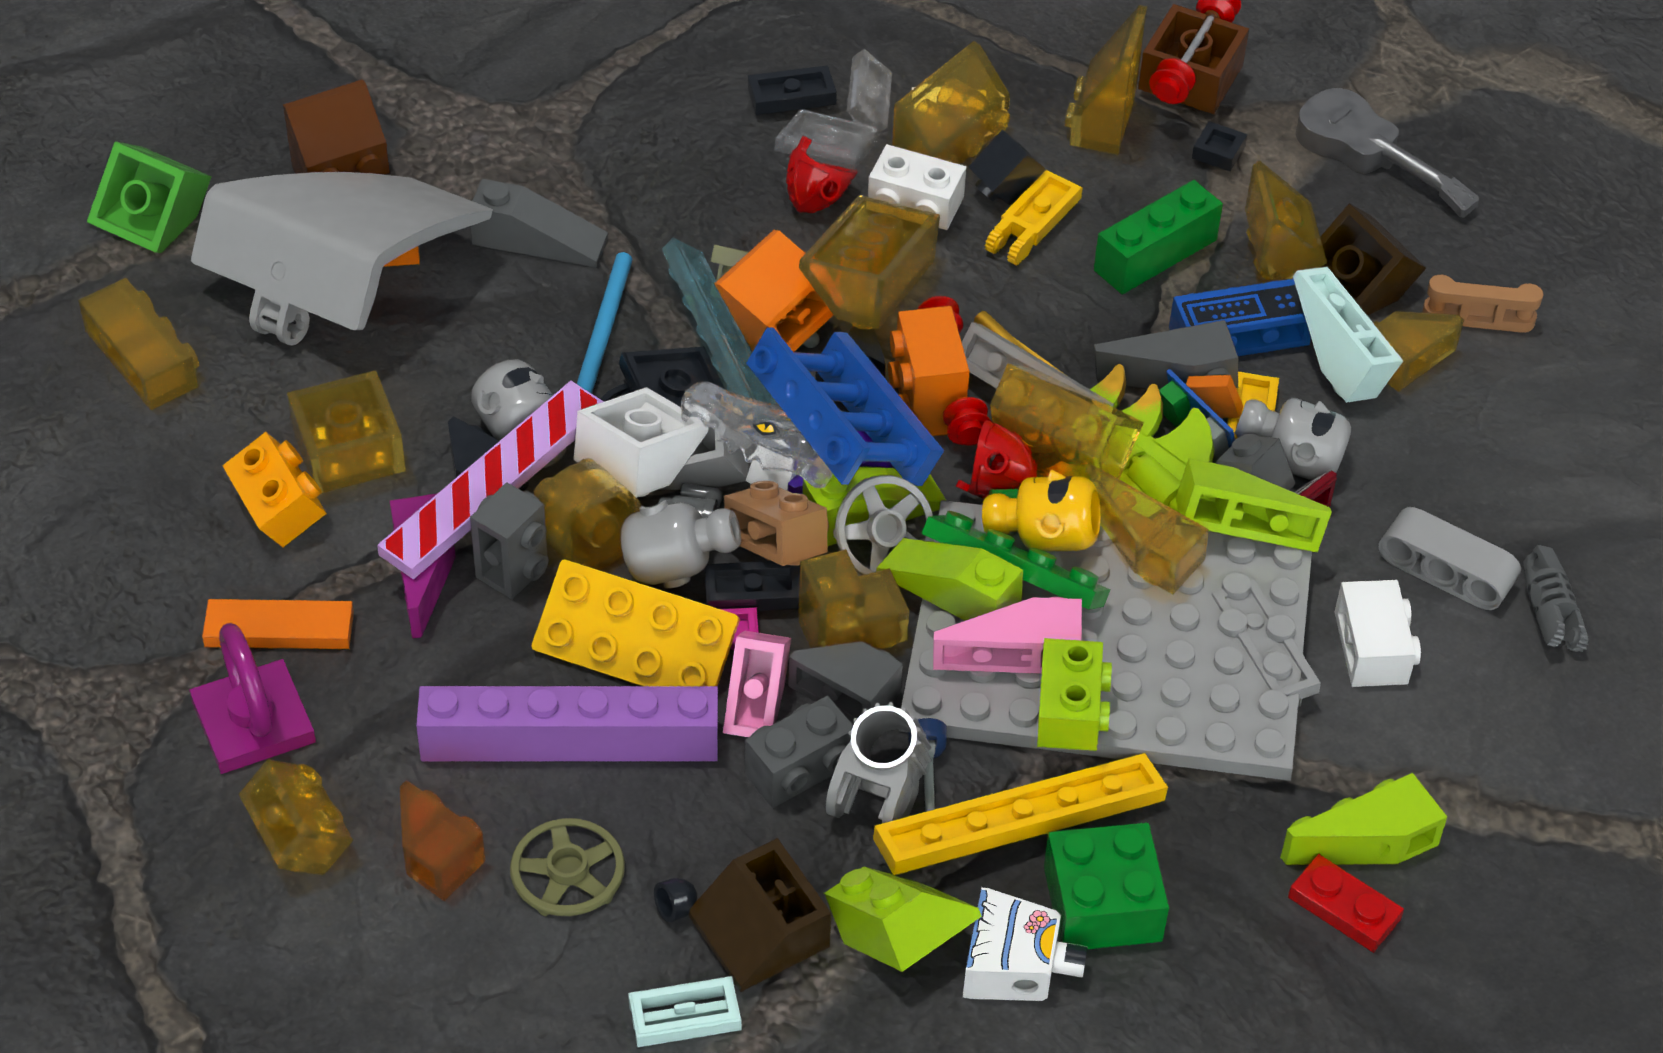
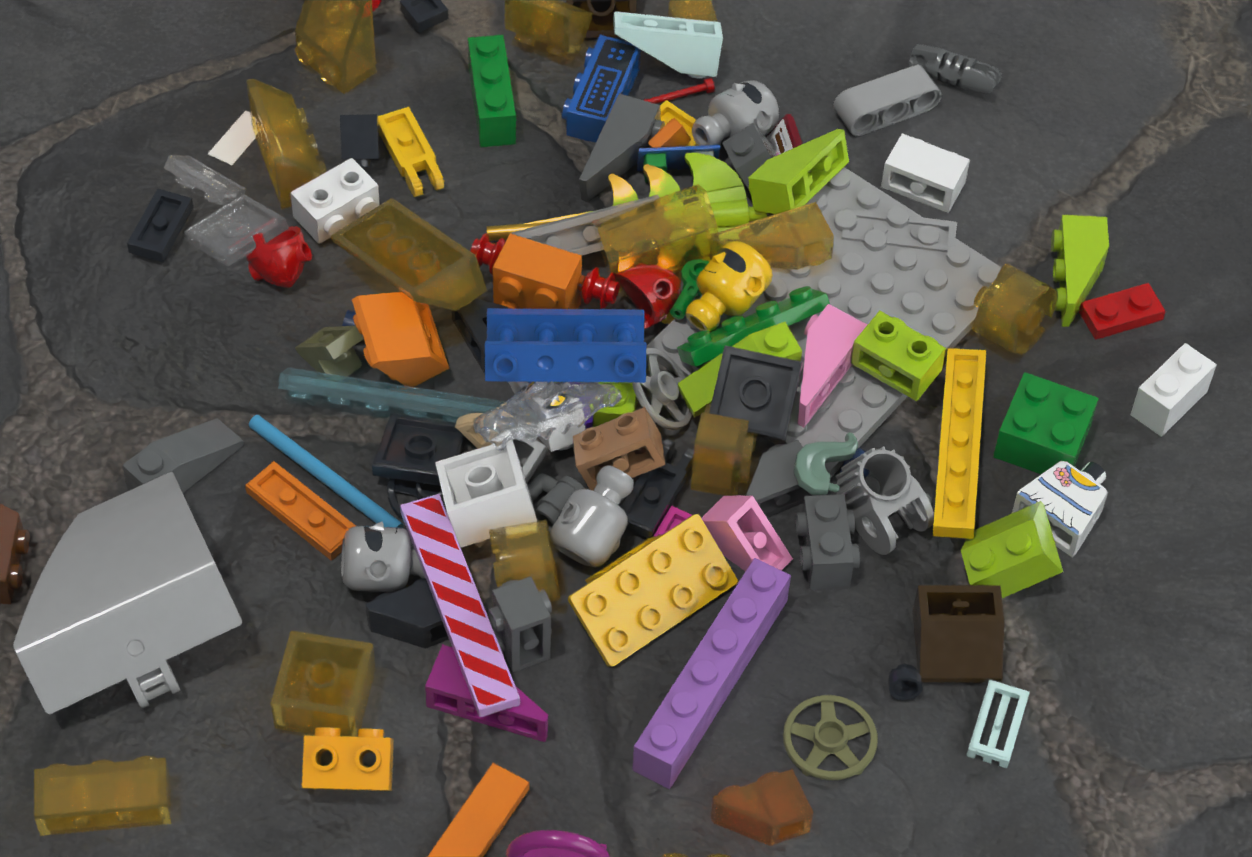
camera: 60 degrees left, 5 degrees up
(552, 331) = (300, 509): none -> orange tile
(877, 682) = (811, 462): none -> sand green piece
(916, 590) = (757, 390): none -> black tile
(1237, 784) = (1013, 309): none -> clear yellow brick
(1260, 990) = (1173, 389): none -> white brick
(1334, 404) = (708, 86): none -> red piece

